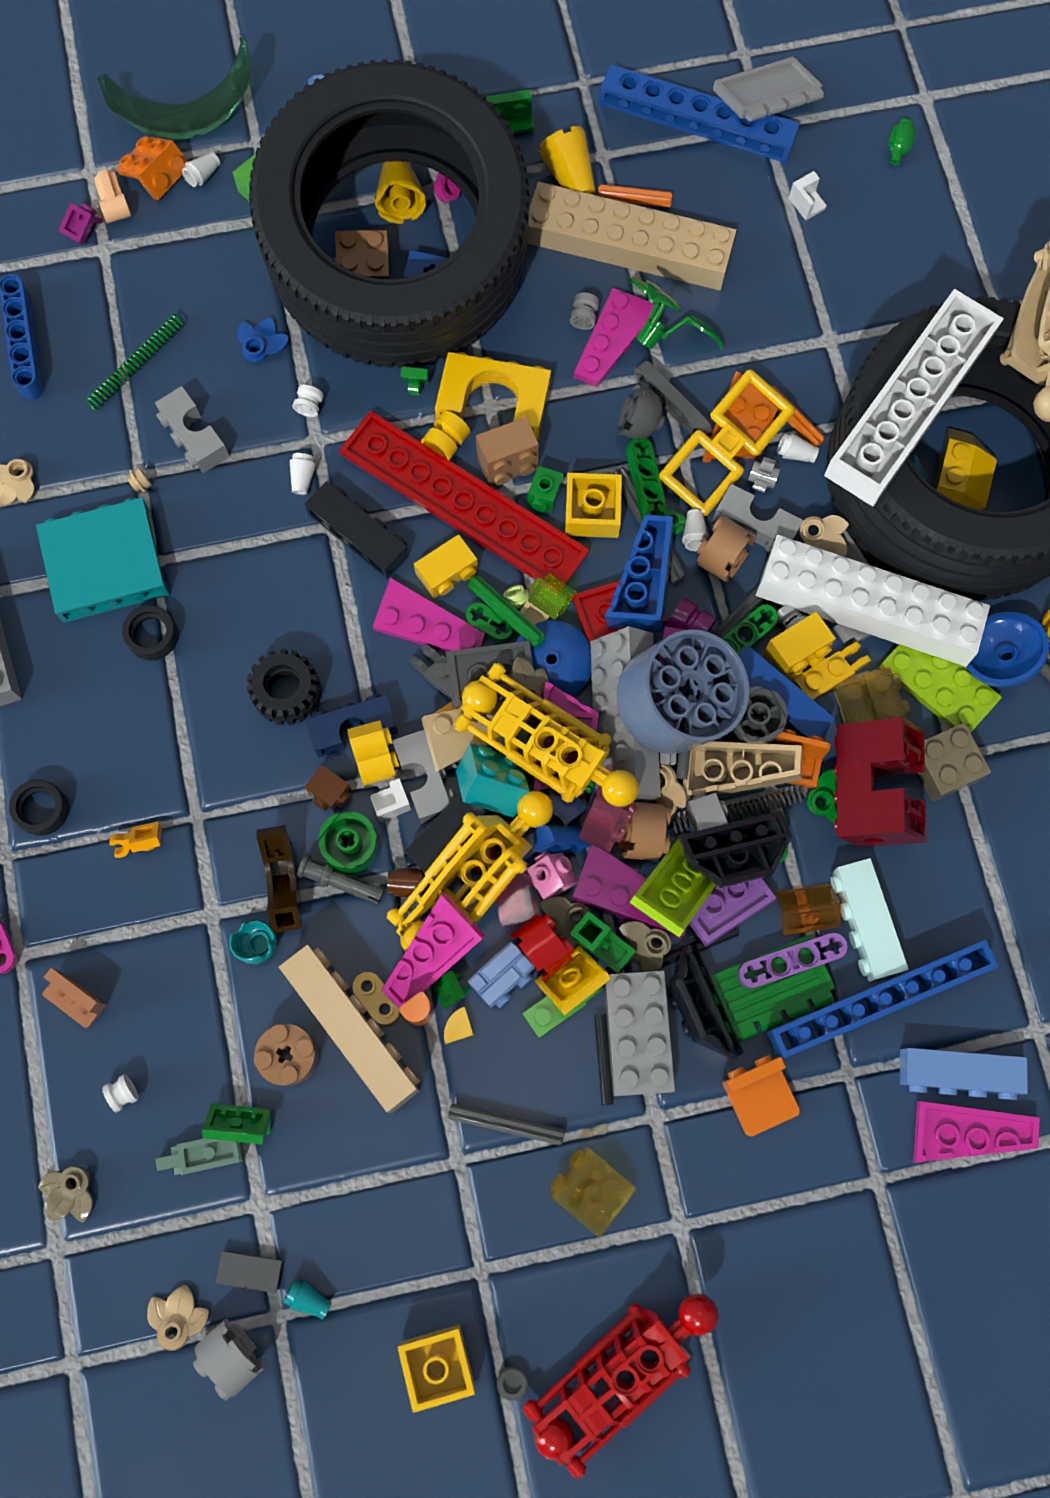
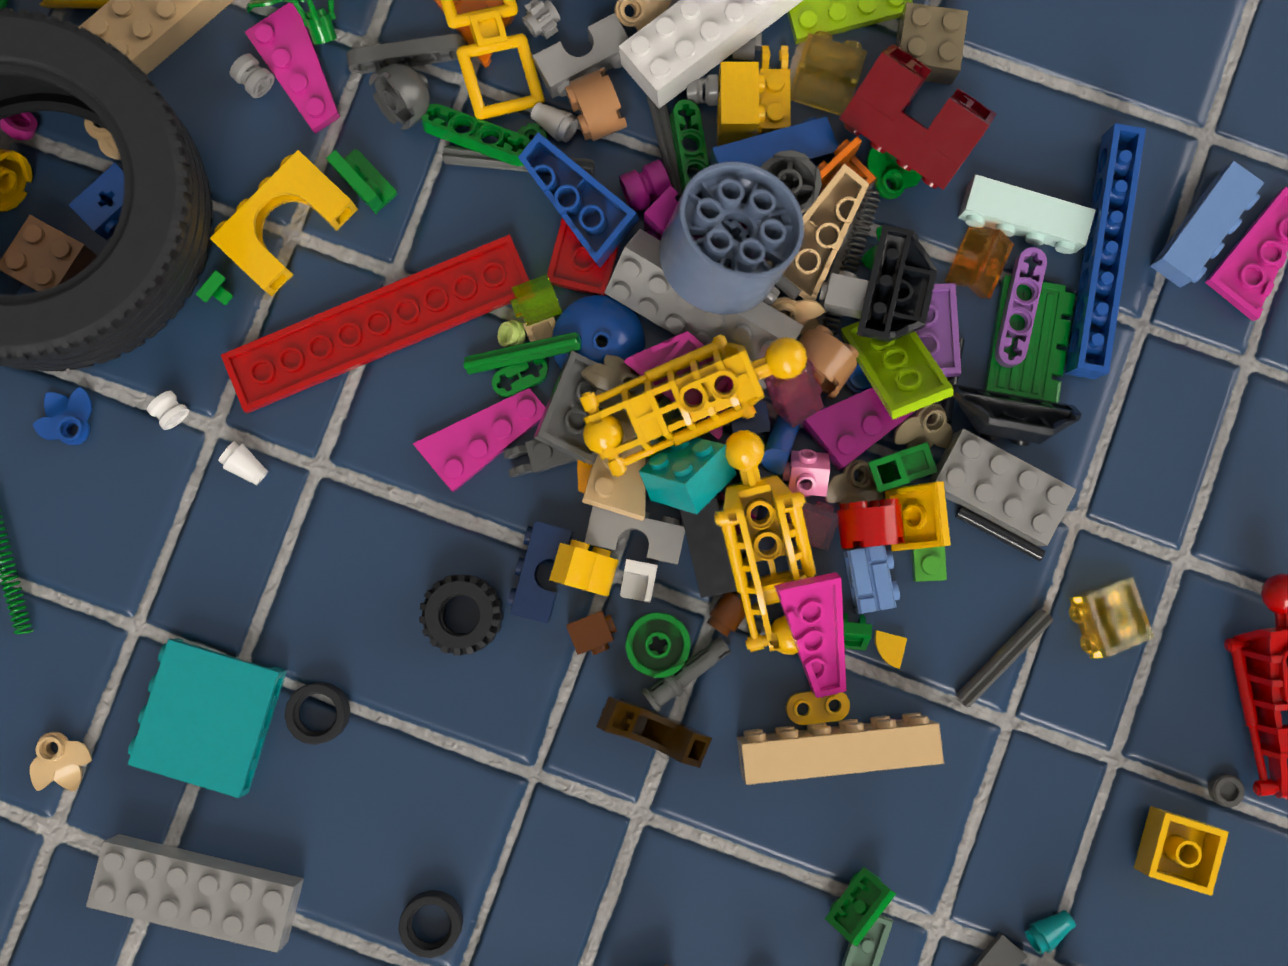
camera: 60 degrees left, 10 degrees up
(138, 480) = (143, 631): tan plate -> none
(139, 839) = (525, 841): light orange plate -> none
(202, 447) = (95, 548): light grey arch -> none
(253, 942) = (696, 792): teal hair -> none
(269, 1057) = (840, 828): medium nougat brick -> none
(357, 529) = (340, 445): black brick -> none
(417, 1010) = (860, 677): orange brick -> none
(446, 435) = (298, 295): yellow wheel -> none
(446, 566) = (437, 382): yellow brick -> none
(507, 452) = (358, 247): medium nougat brick -> none
(545, 489) = (419, 236): green brick -> none
(560, 427) = (363, 179): none -> green bracket
(593, 505) = (467, 200): yellow brick -> none
(761, 1095) = (1119, 414): orange bracket -> none

